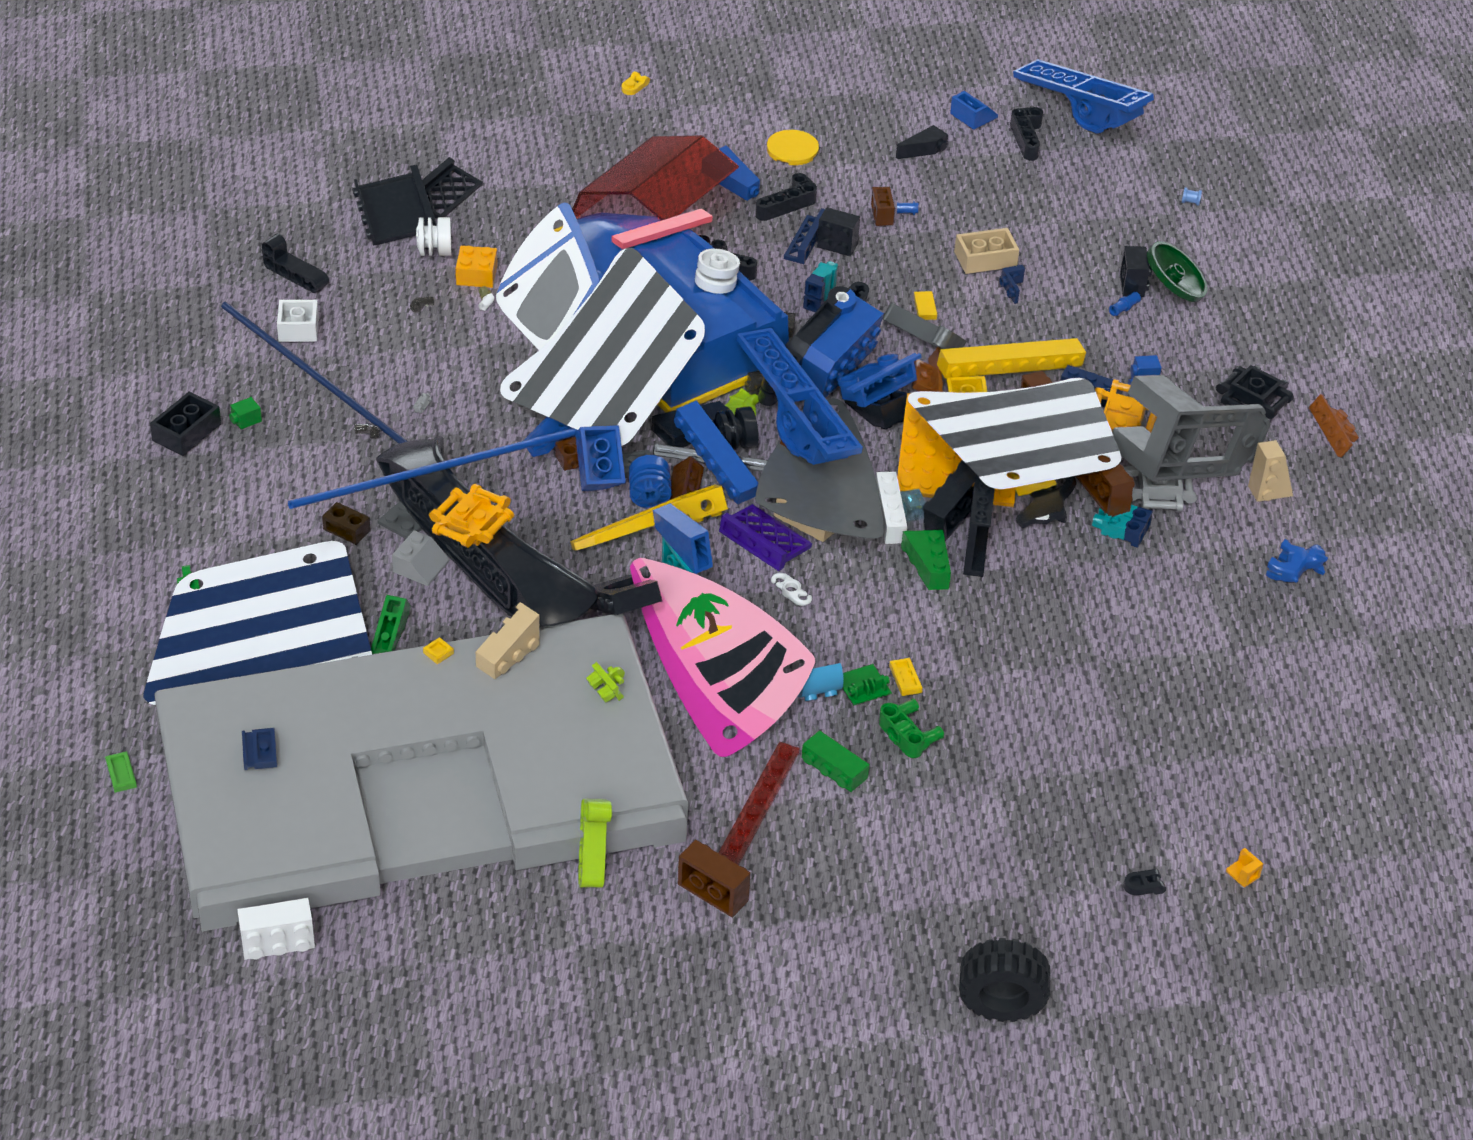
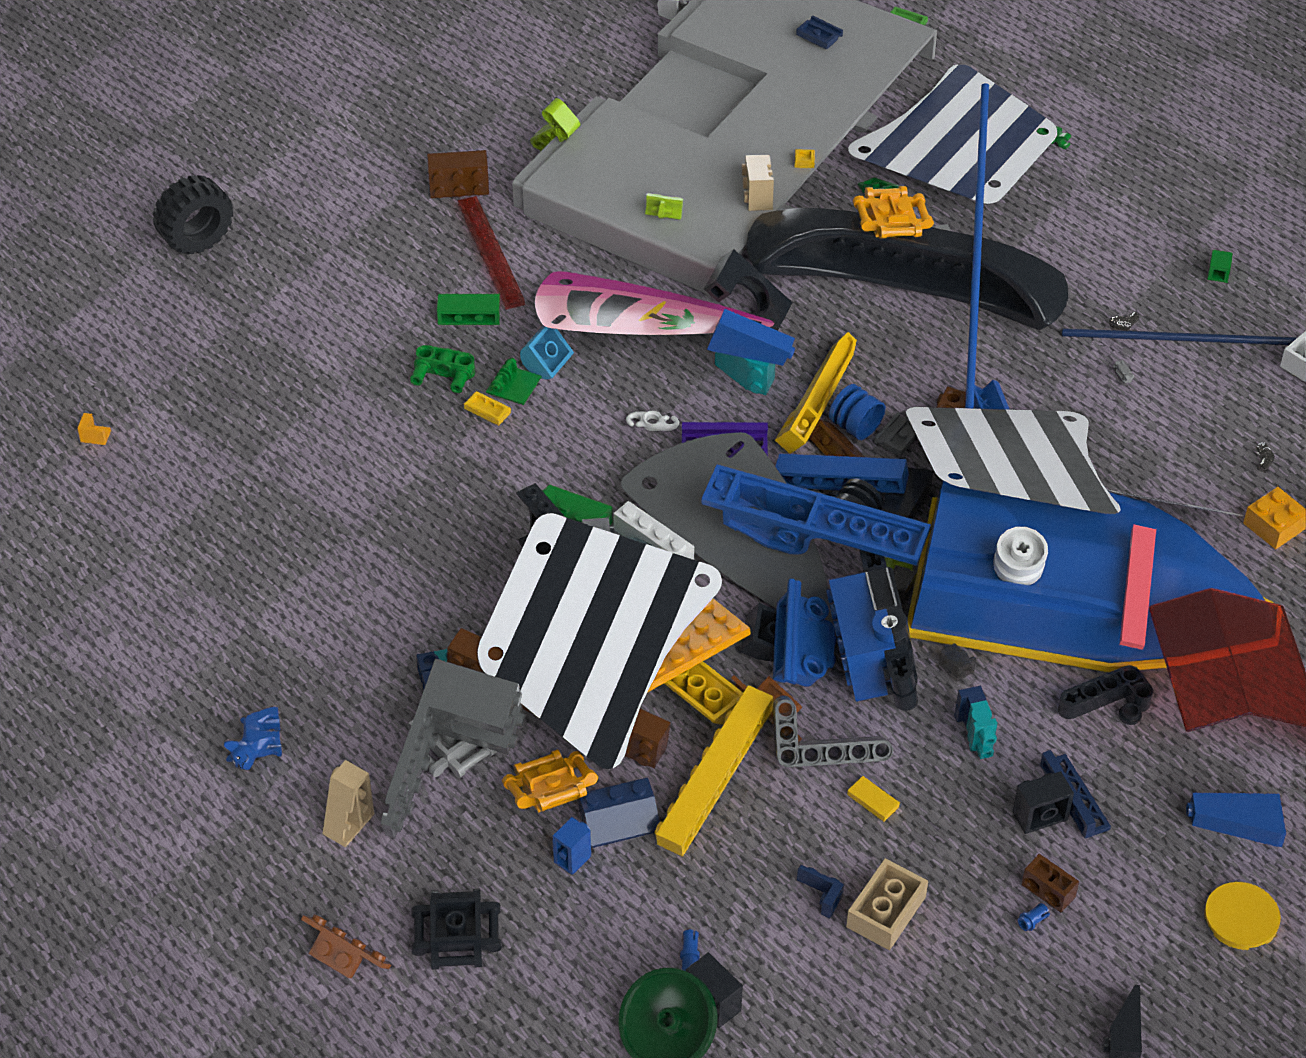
camera: 140 degrees right, 5 degrees up
(185, 423) = (1239, 223): black brick -> none
(346, 523) = (1025, 237): dark brown brick -> none
(487, 298) = (1224, 503): white arm -> none
(600, 457) = (918, 390): blue slope -> none
(800, 195) = (1146, 818): black beam -> none
(1136, 882) = (167, 369): black plate -> none

